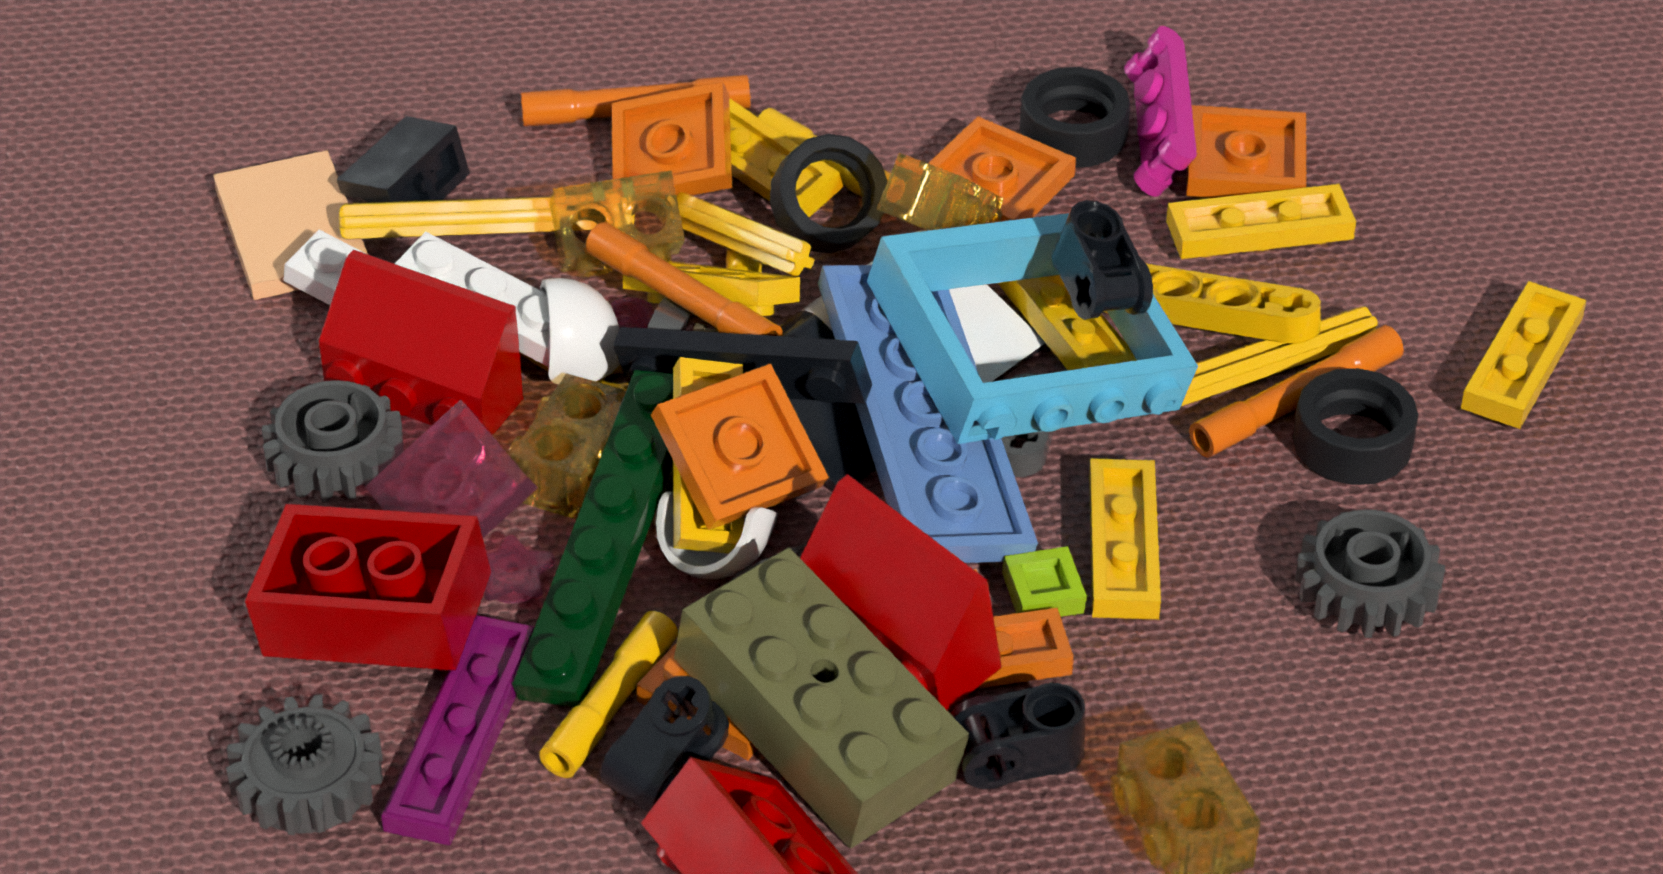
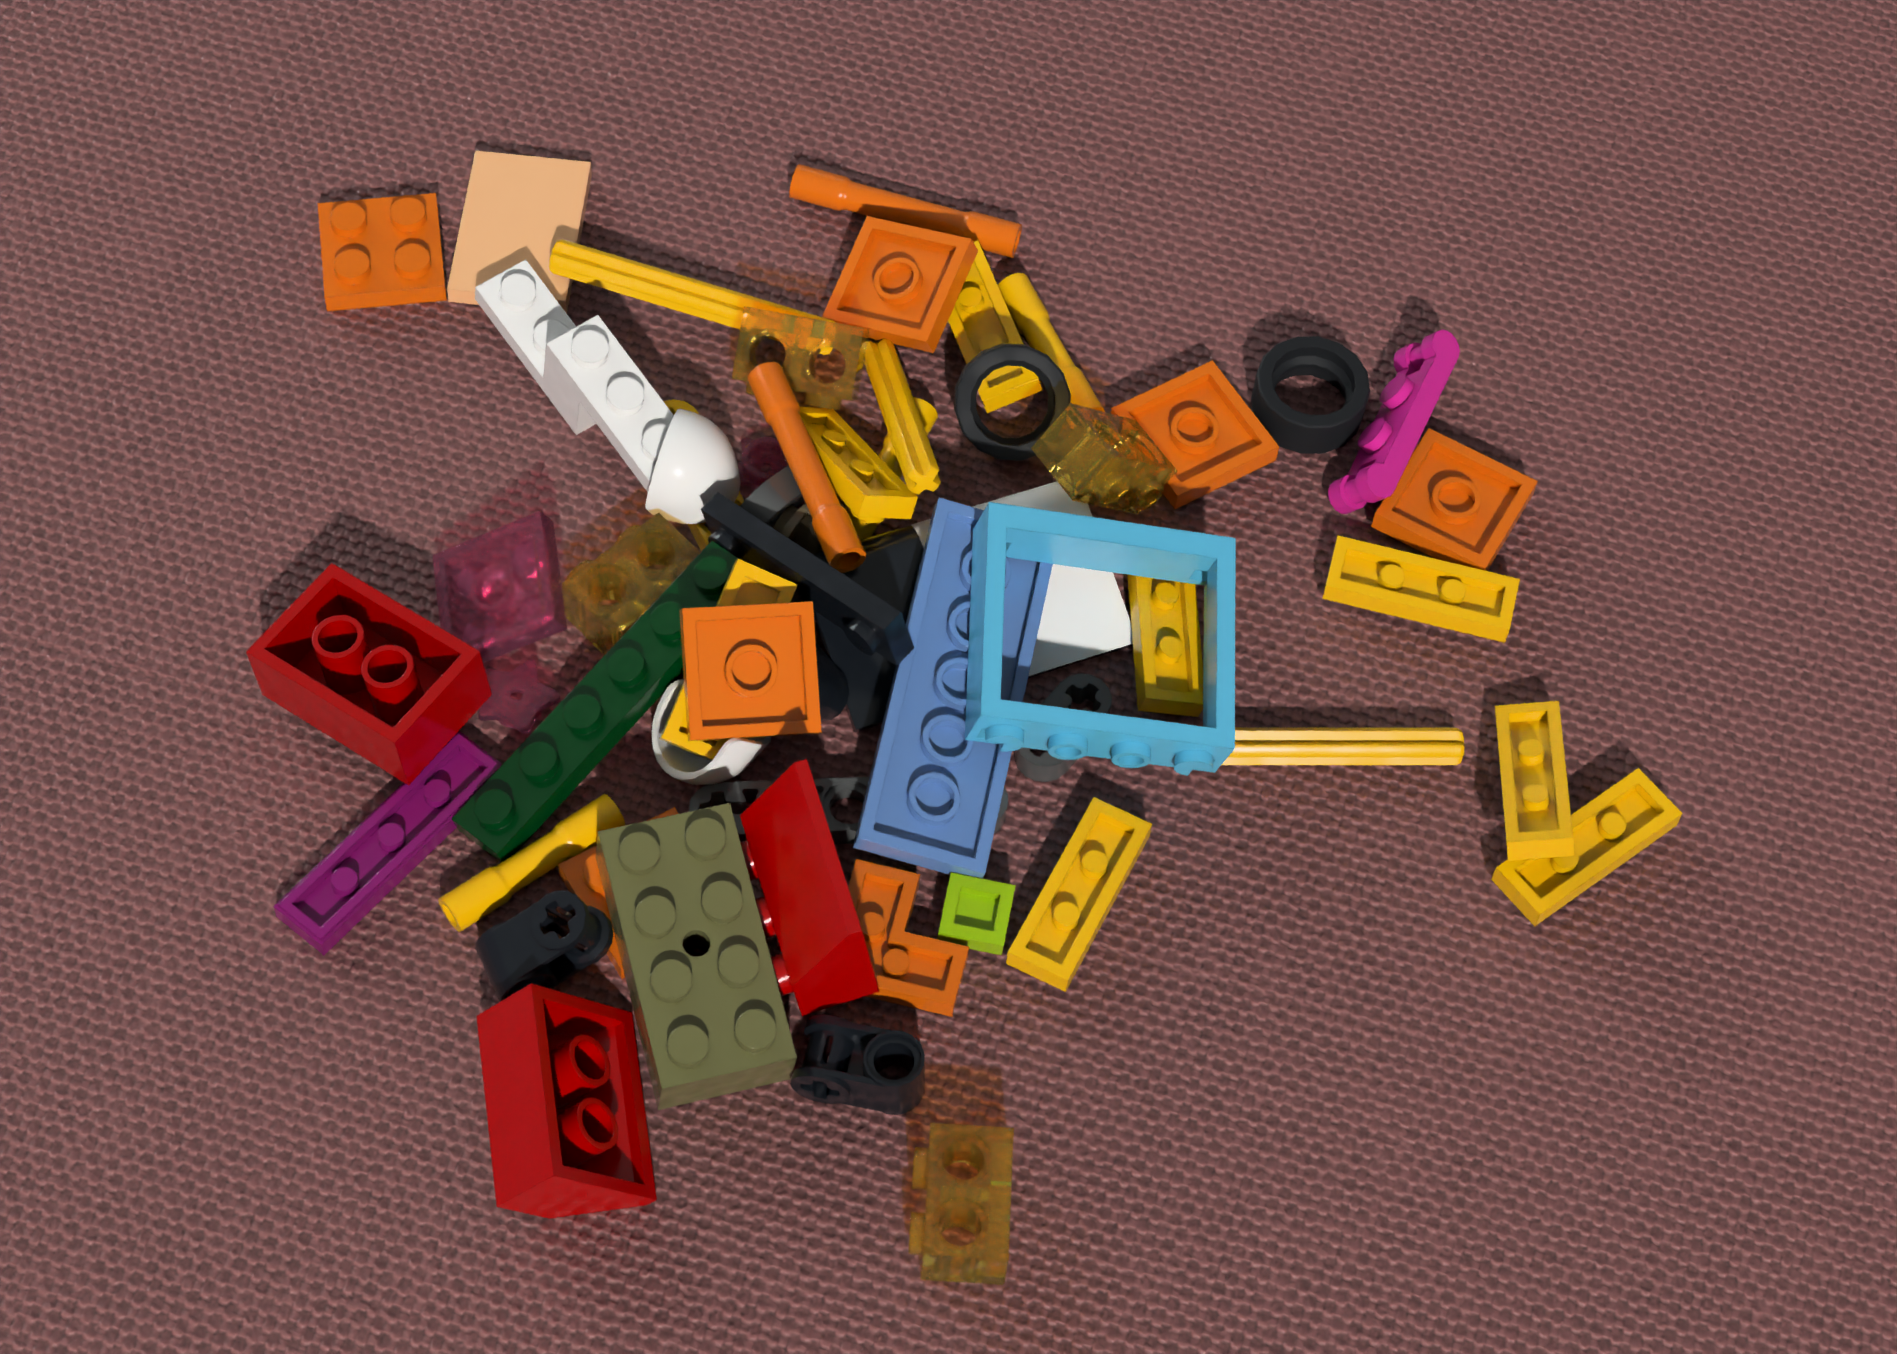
camera: 20 degrees right, 15 degrees up
(168, 280) = (381, 252): none -> orange plate
(305, 766) = (239, 859): dark grey gear -> none
(331, 438) = (428, 493): dark grey gear -> none
(408, 164) = (648, 214): black hinge -> none
(422, 342) = (545, 433): red slope -> none
(1101, 263) = (1186, 620): black piece -> none
(1236, 305) = (1317, 656): yellow beam -> none
(1244, 417) = (1271, 806): orange piece -> none
(1345, 457) = (1384, 820): black tyre -> none
(1370, 571) = (1278, 1061): dark grey gear -> none
(1454, 316) = (1534, 781): none -> yellow plate

